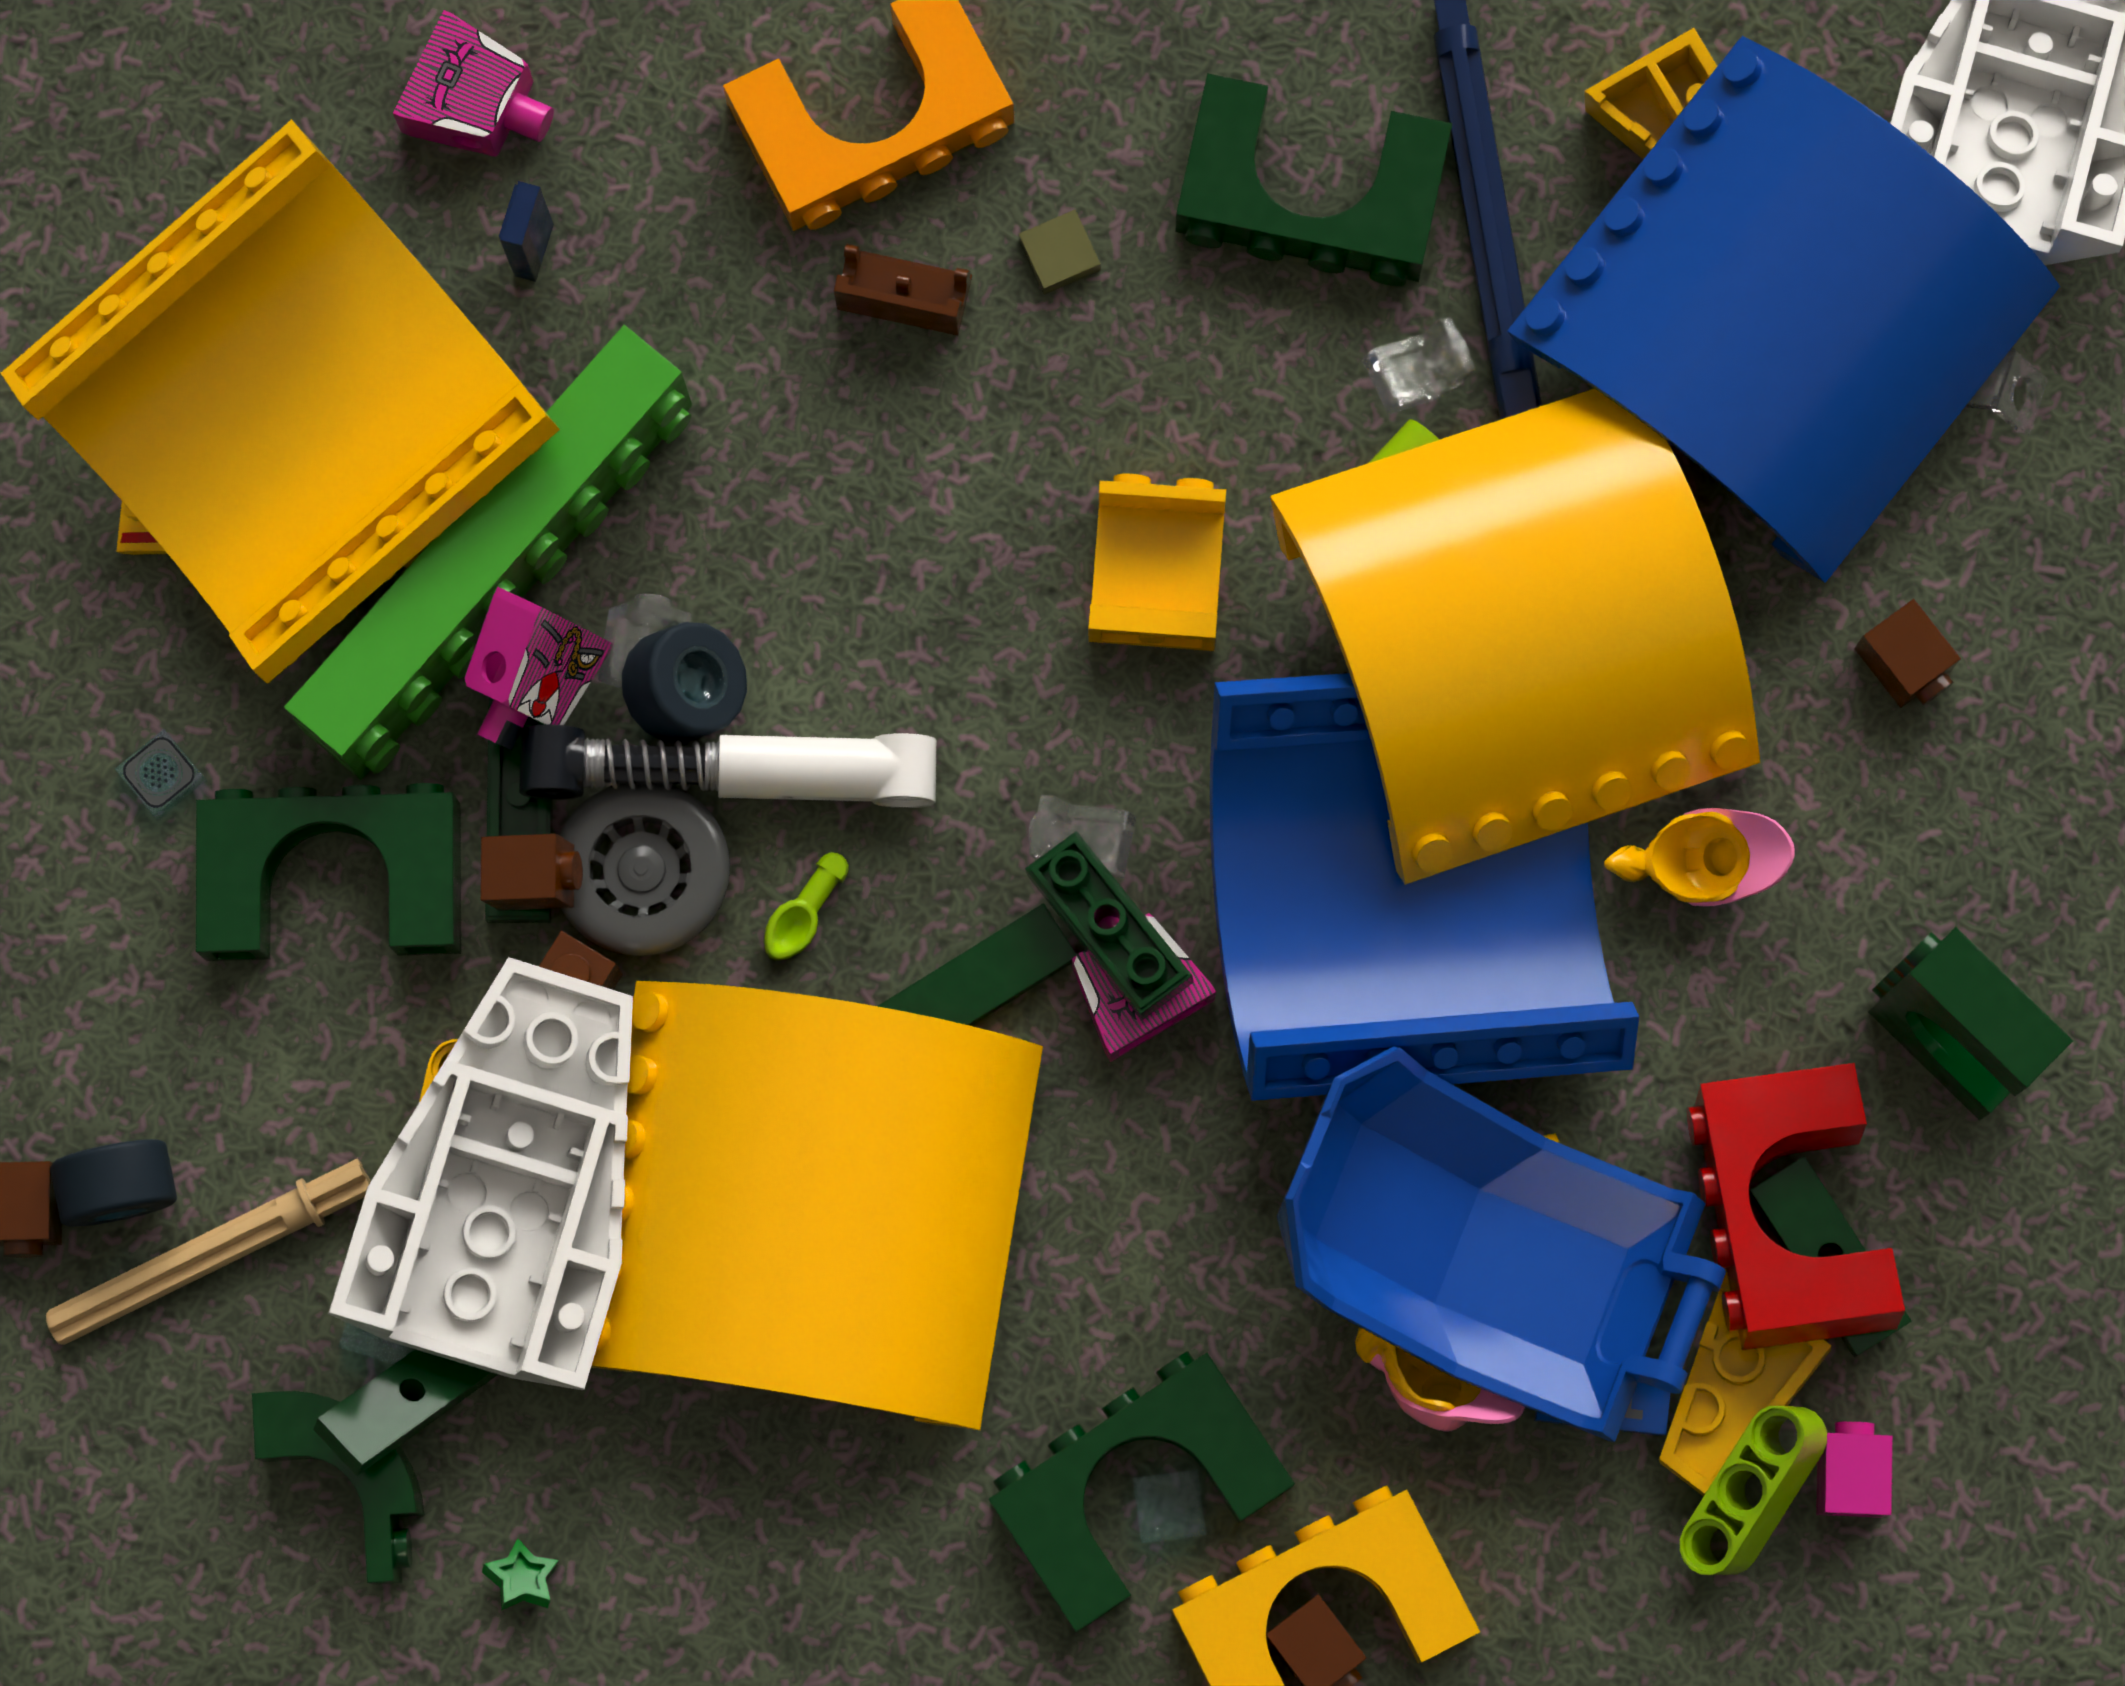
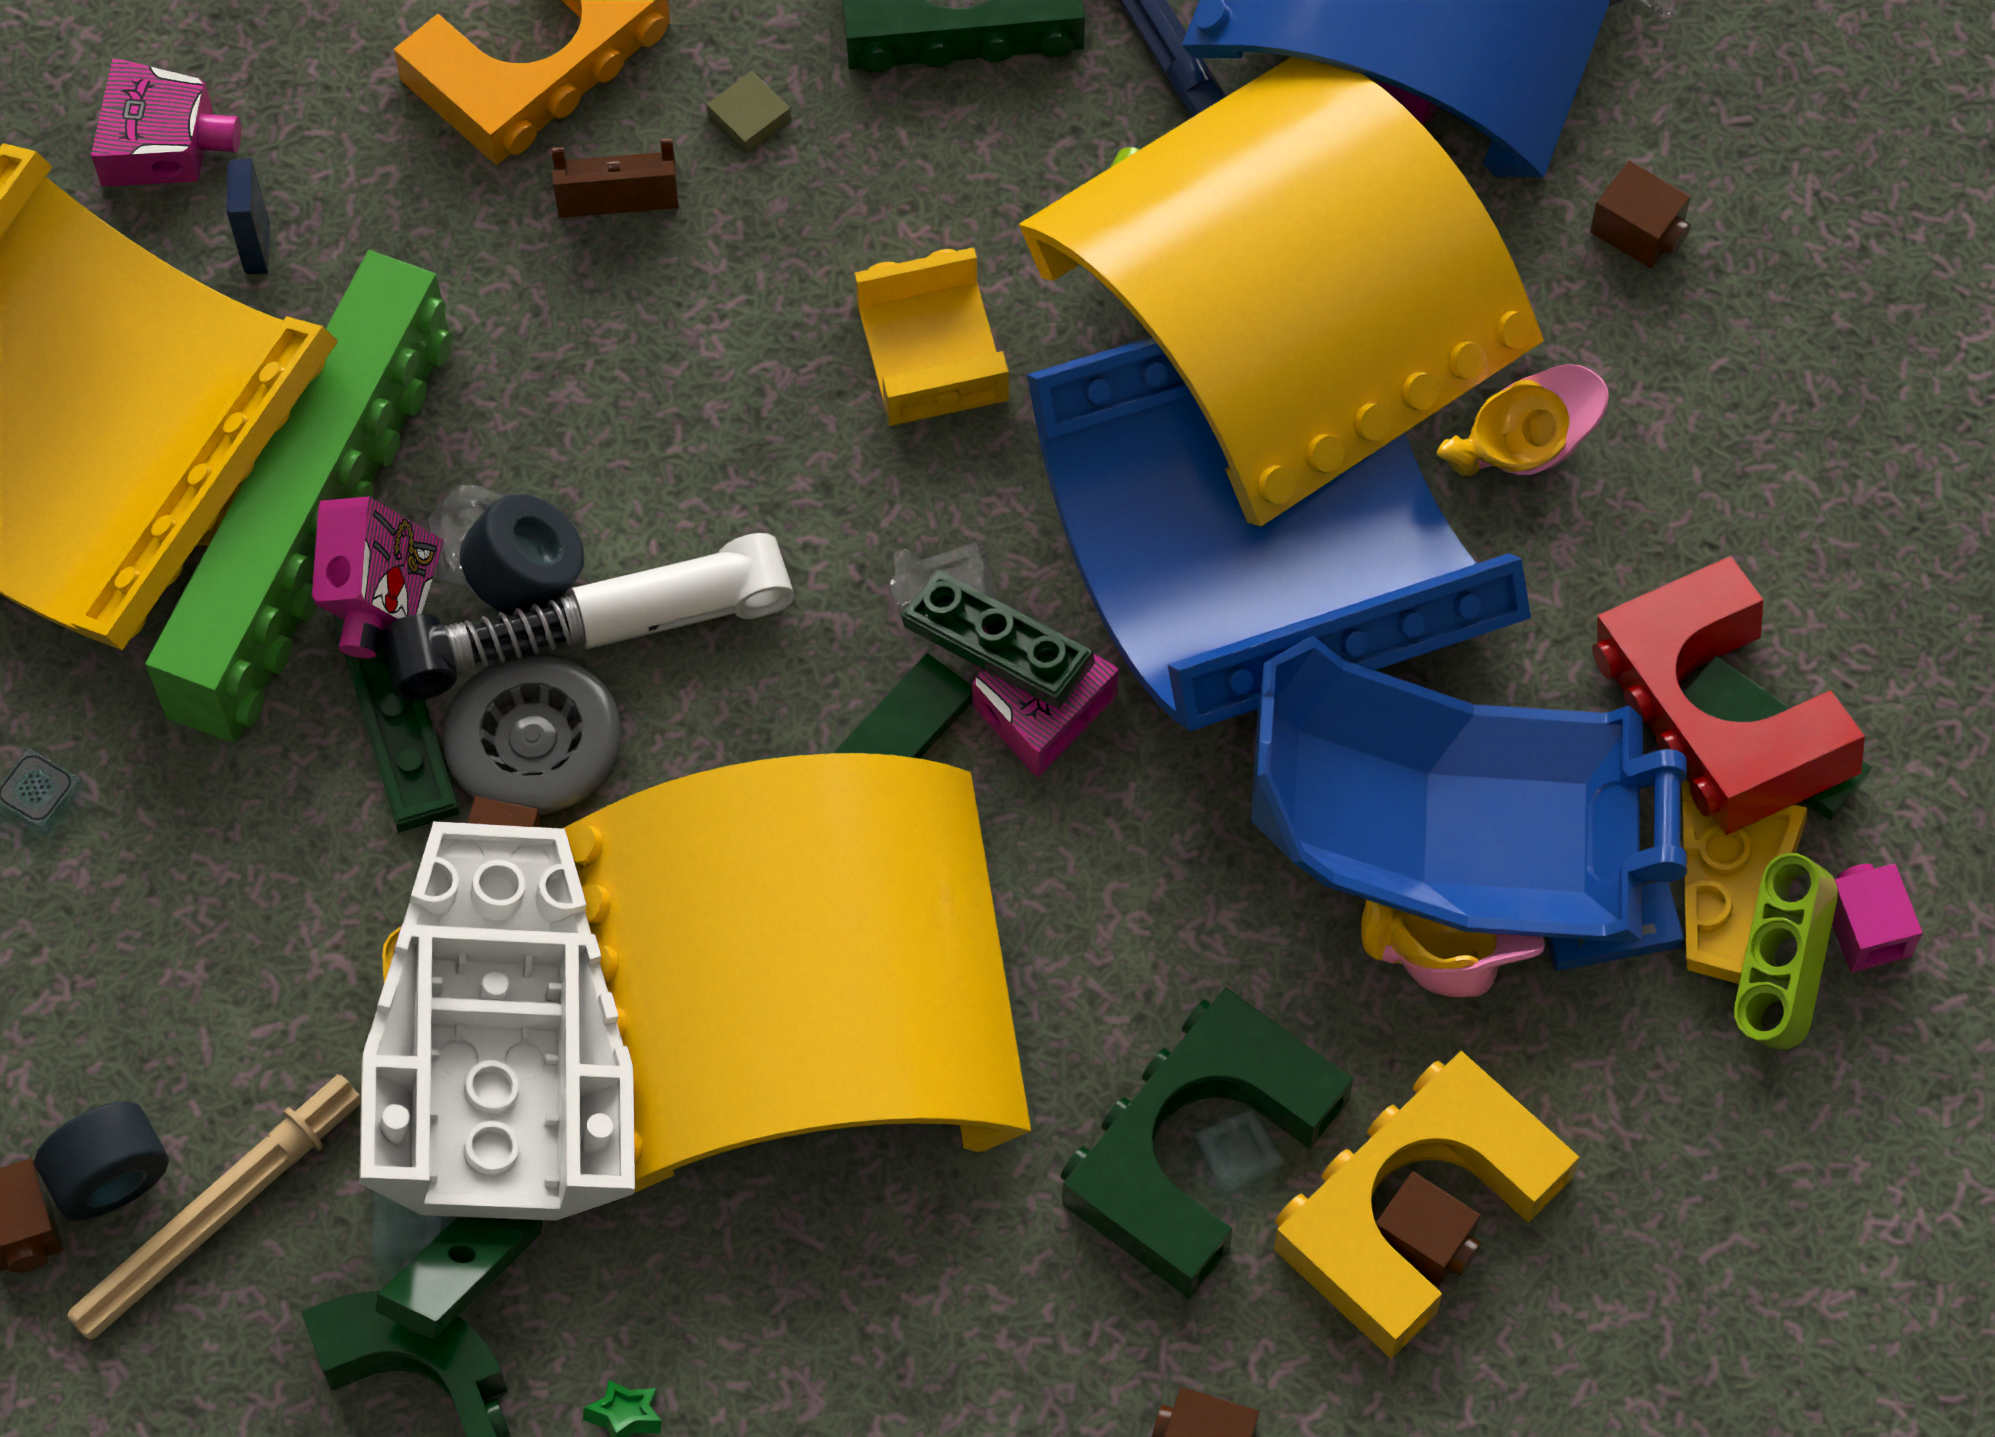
camera: 20 degrees left, 15 degrees down
(248, 837) = (144, 812): dark green arch -> none
(529, 872) = (427, 757): reddish brown brick -> none
(796, 921) = (696, 739): lime piece -> none
(1420, 367) = (1114, 109): clear bracket -> none
(1967, 1022) = (1831, 427): dark green arch -> none

